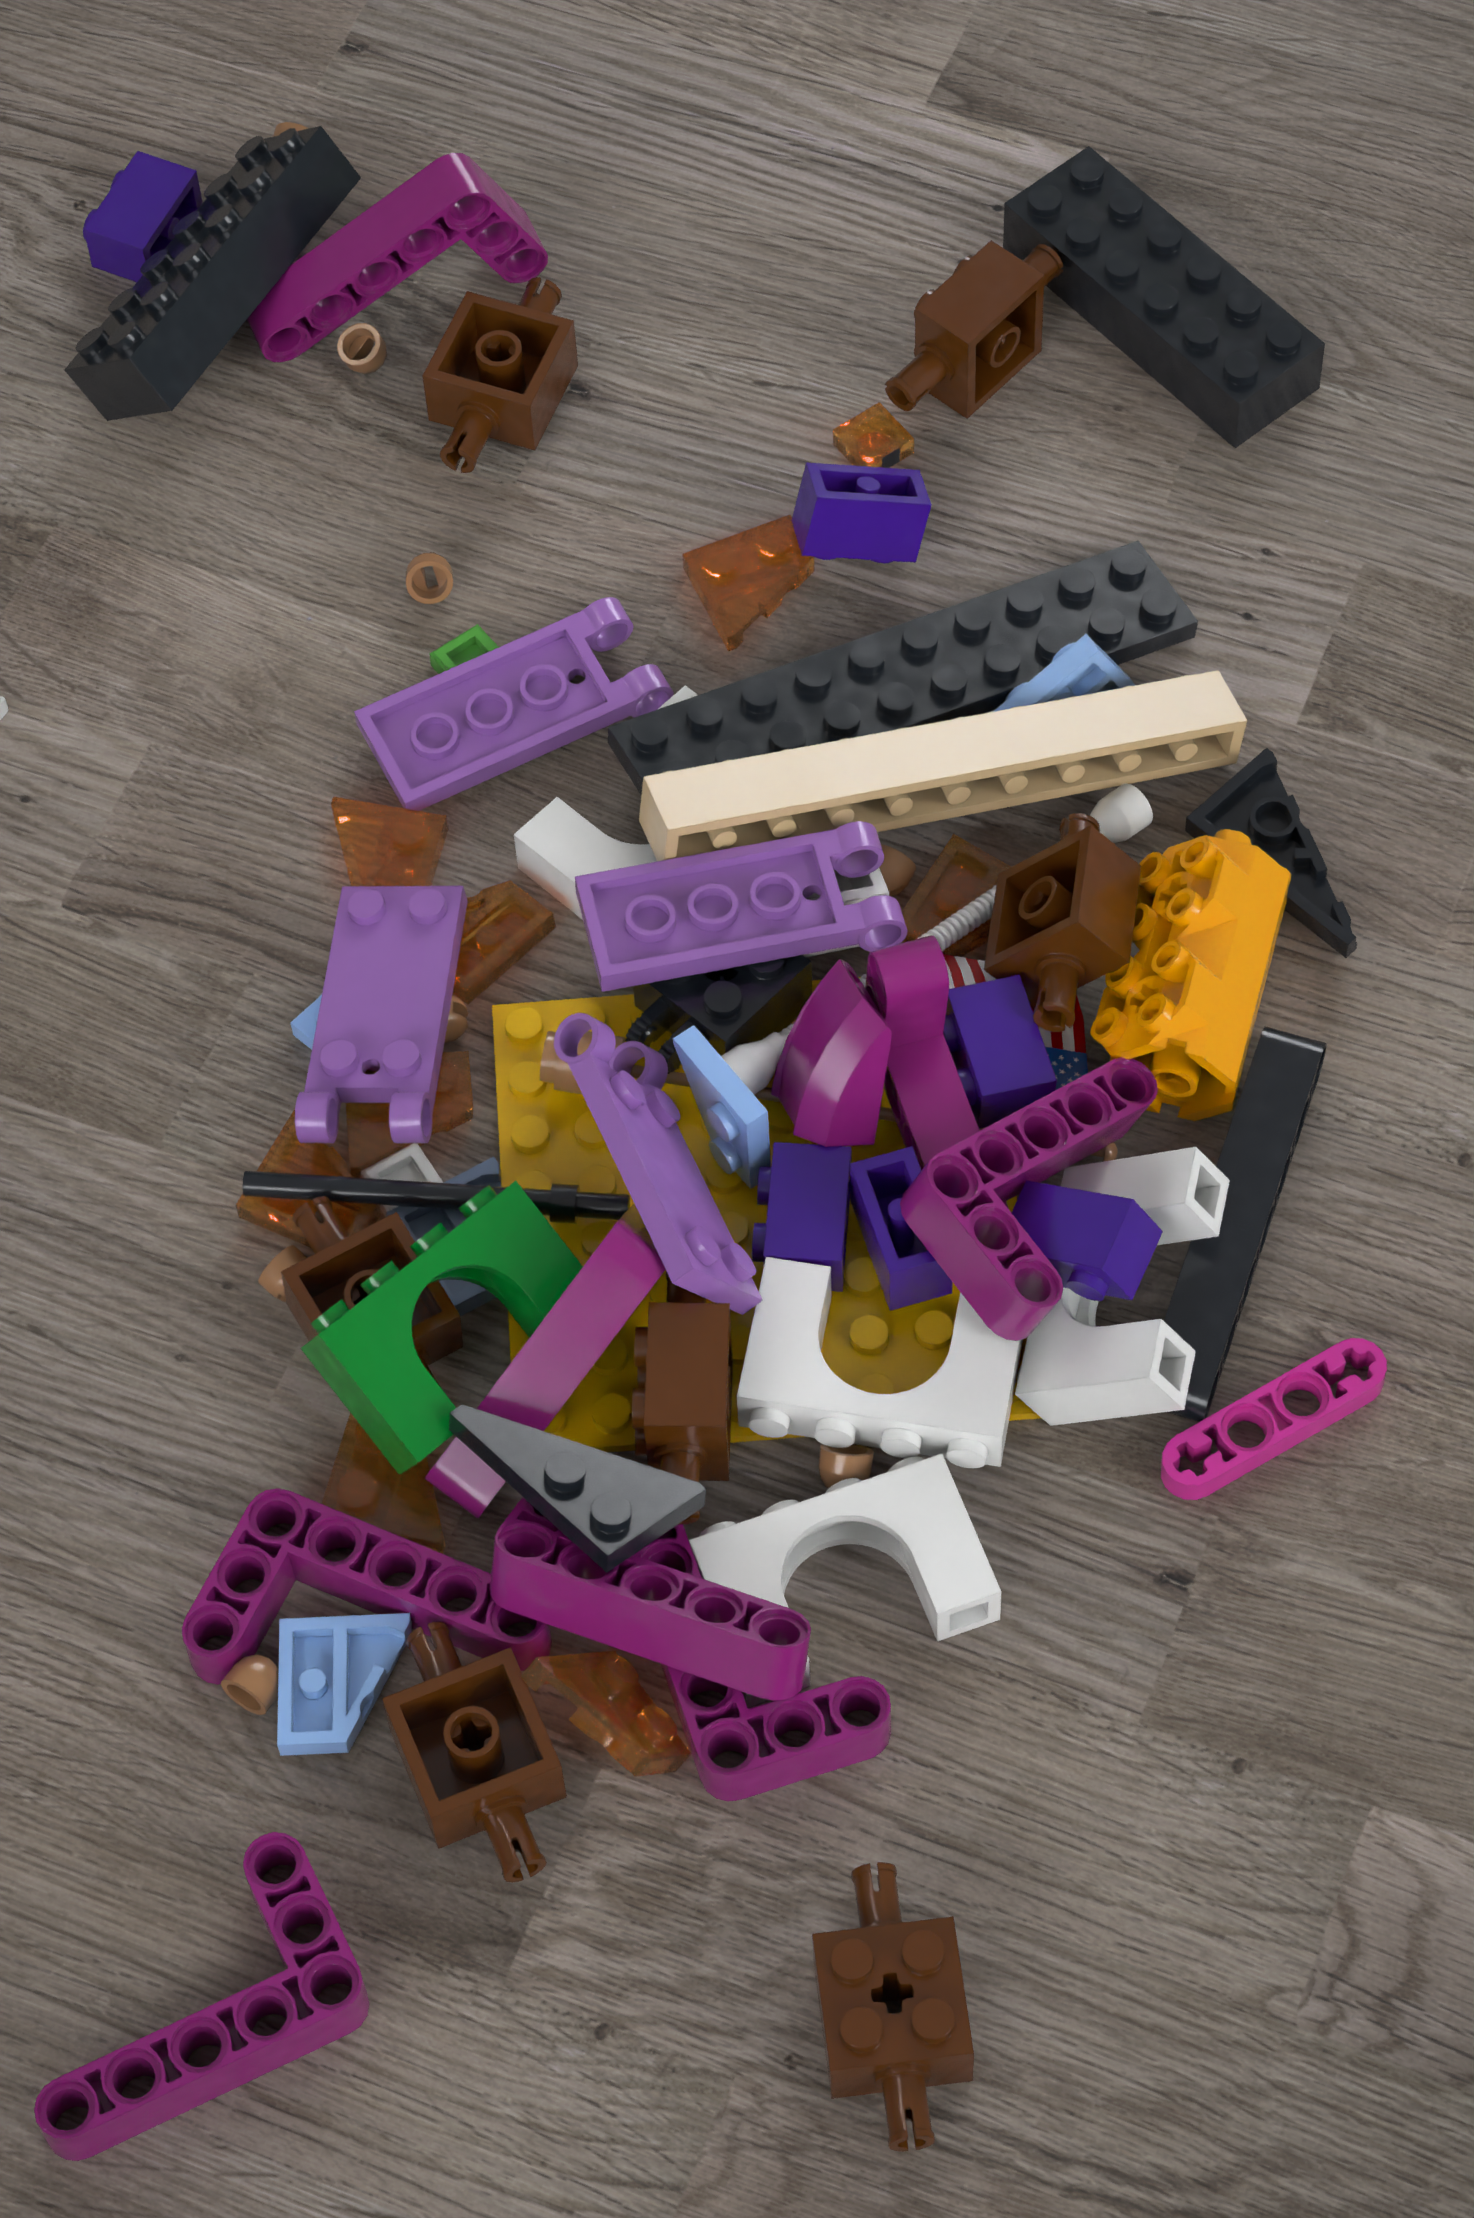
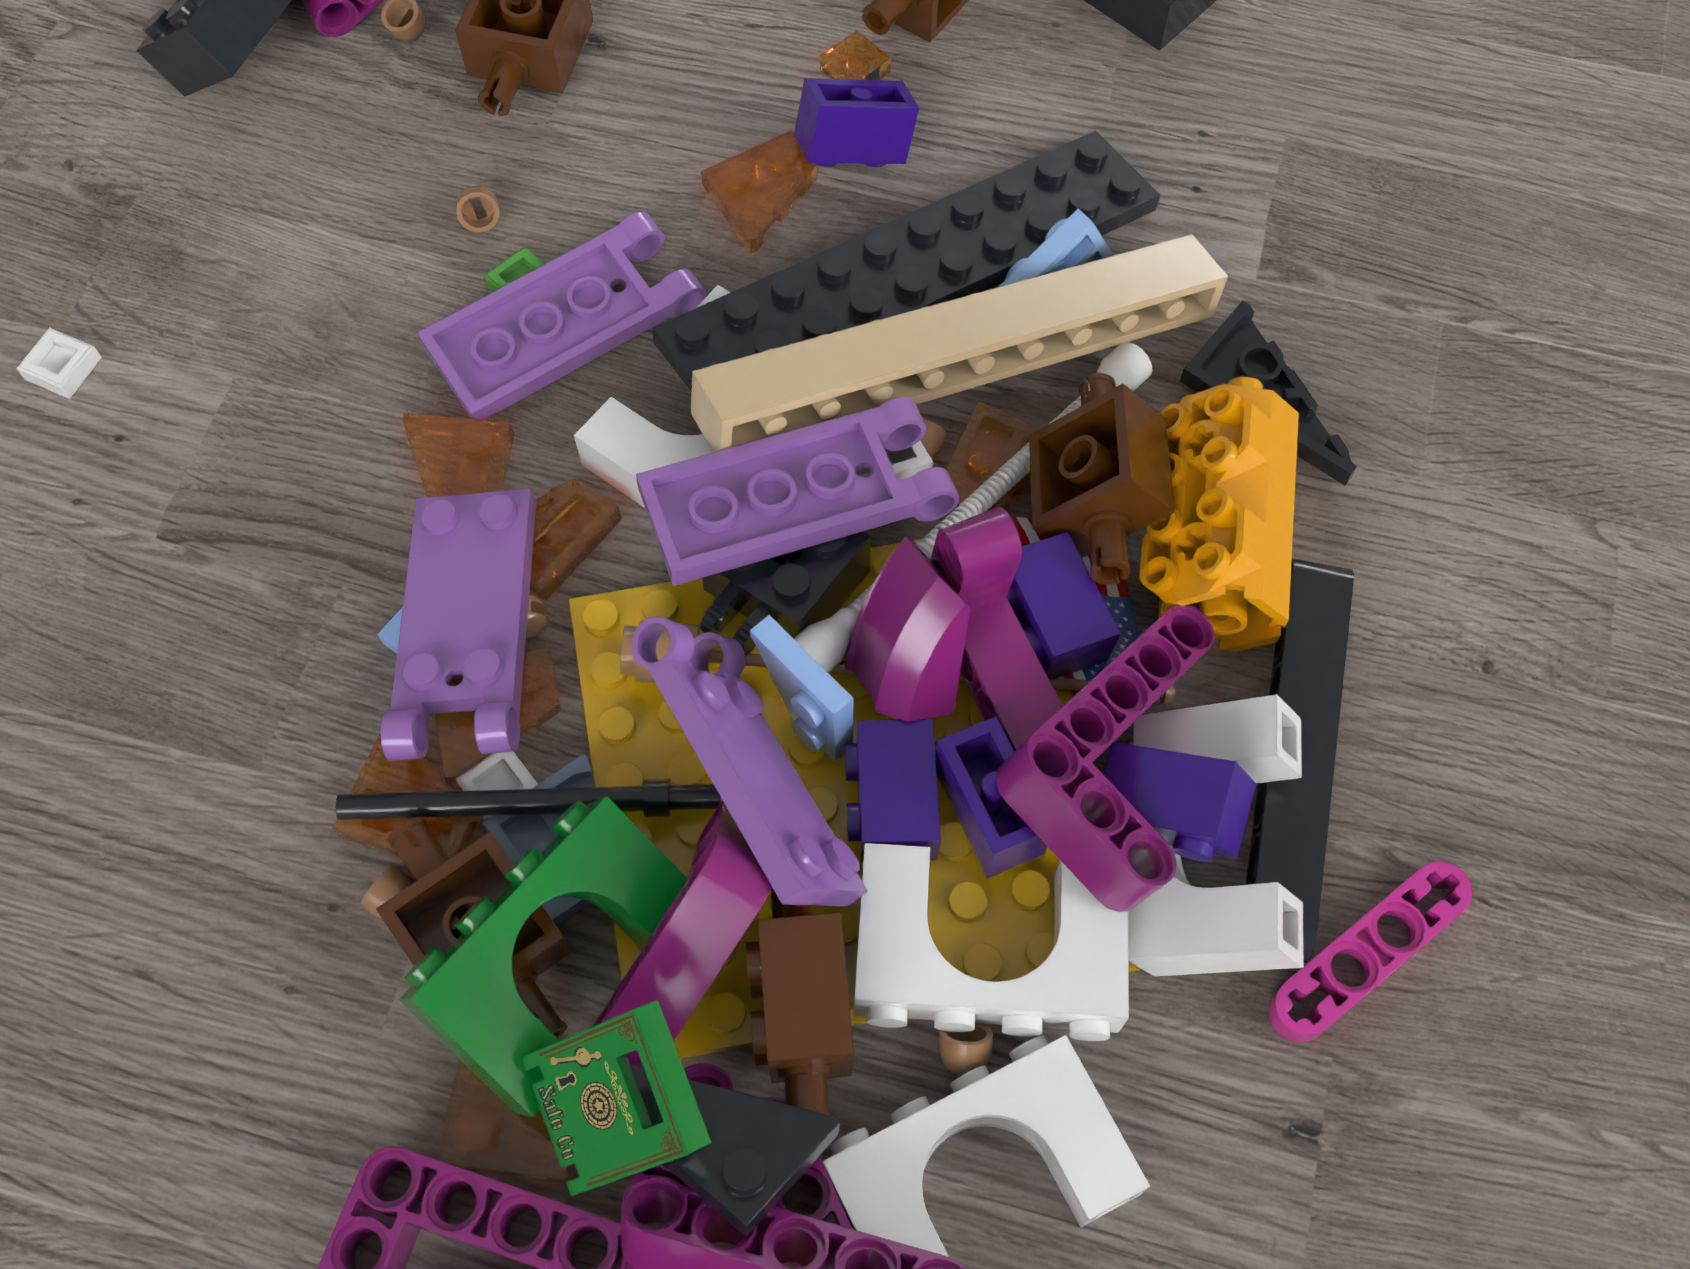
camera: 10 degrees left, 5 degrees up
(480, 1445) = (596, 1105): none -> green container

